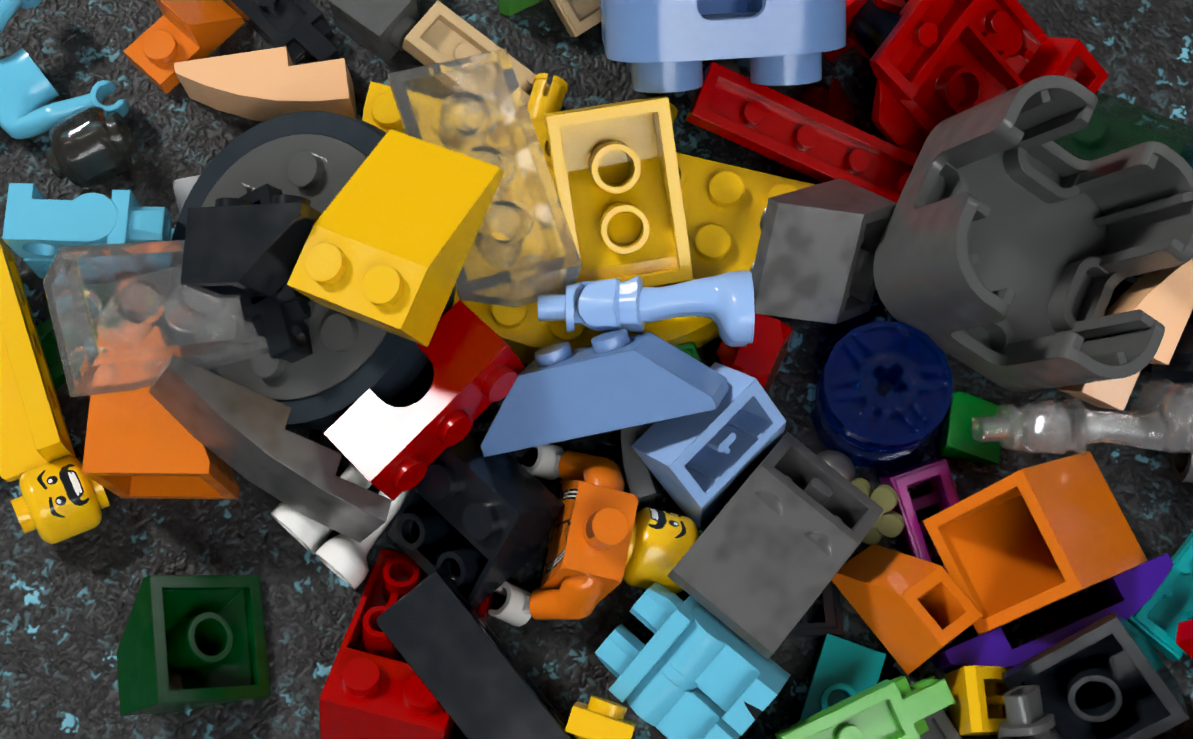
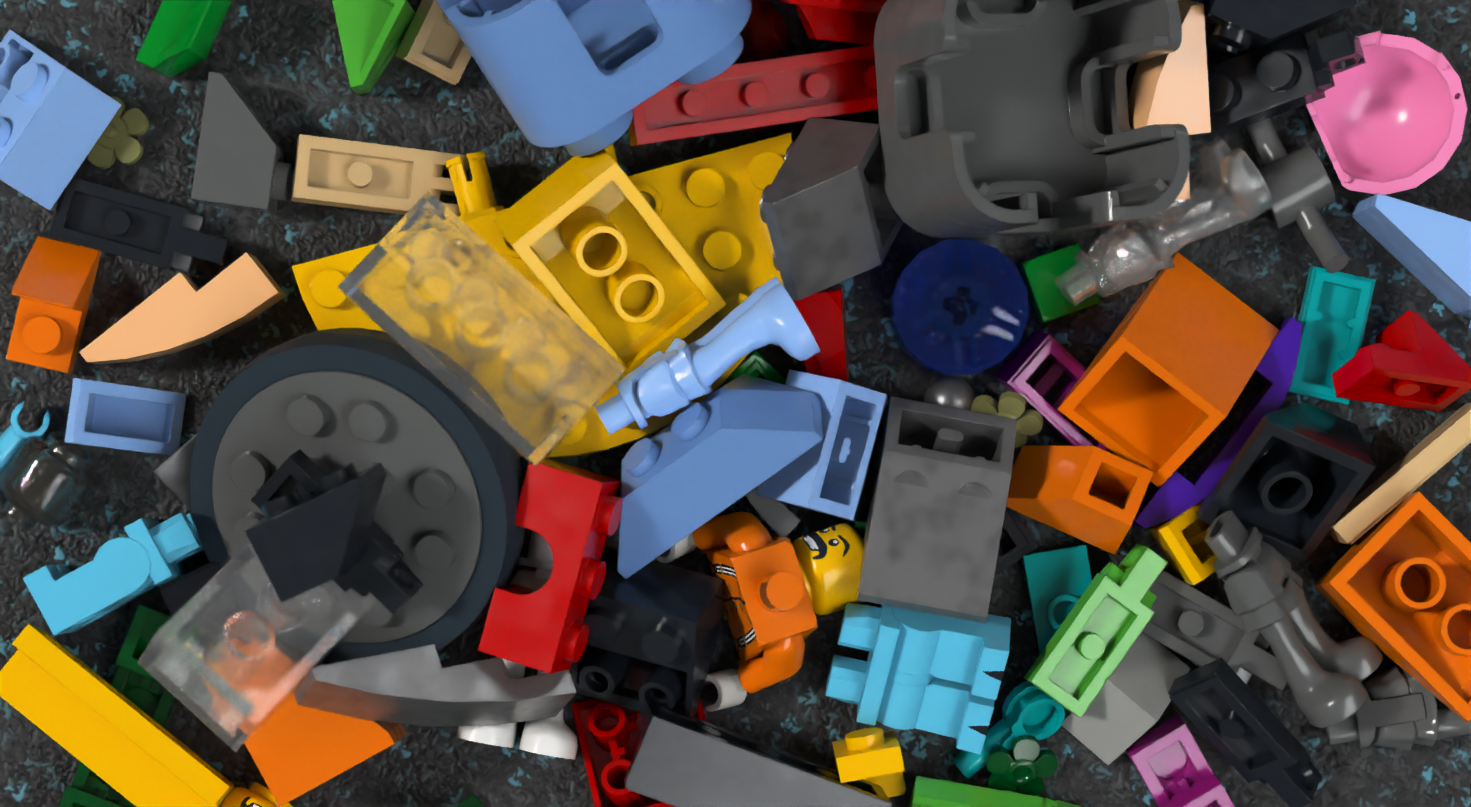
camera: 30 degrees left, 15 degrees up
(171, 127) = (125, 417): none -> light blue slope
(397, 236) = (449, 444): yellow slope -> none

